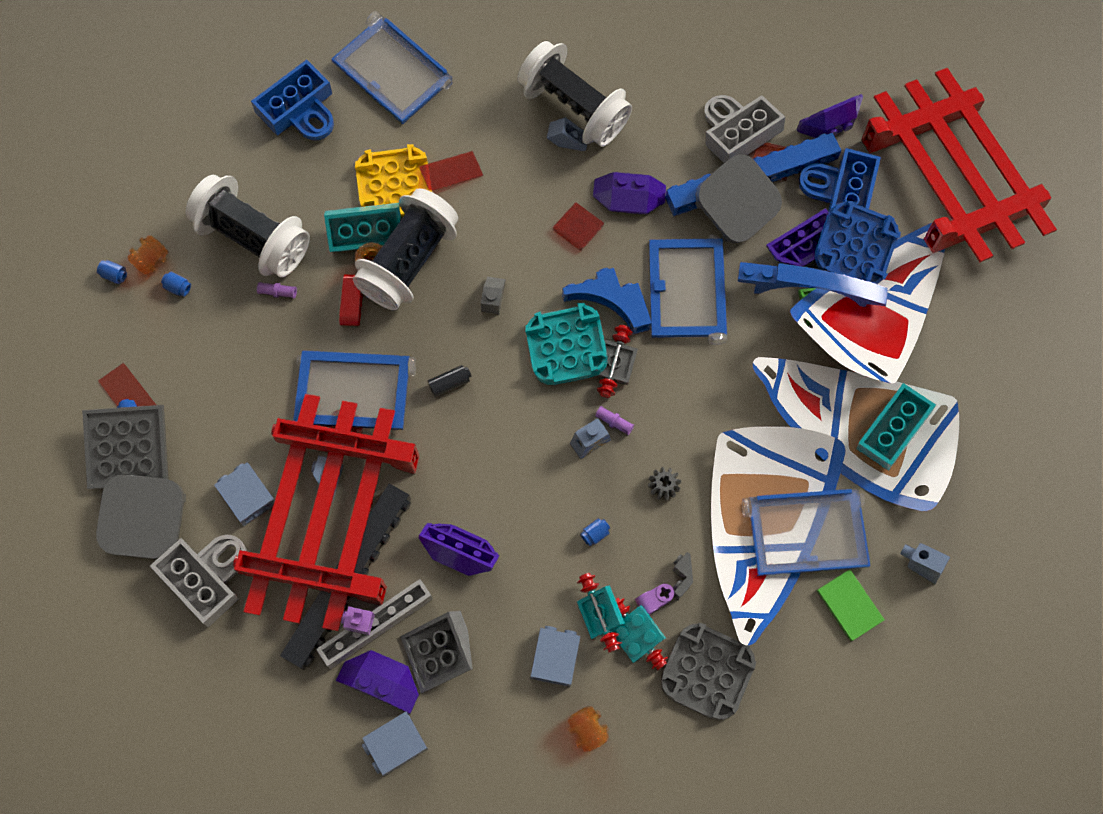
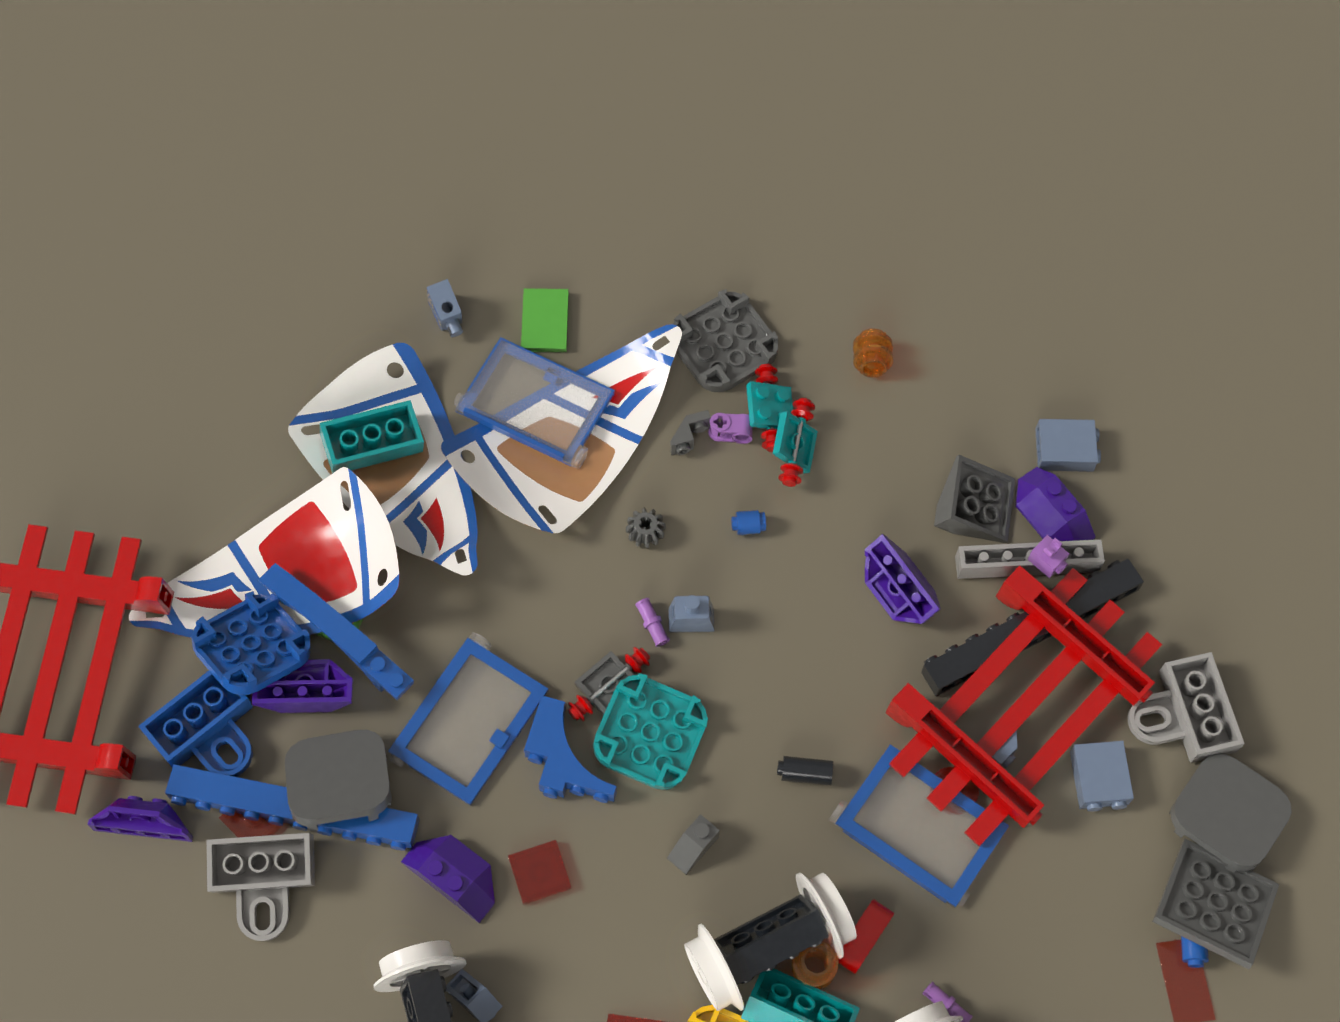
camera: 145 degrees left, 5 degrees down
(555, 656) = (864, 432): sand blue brick -> none

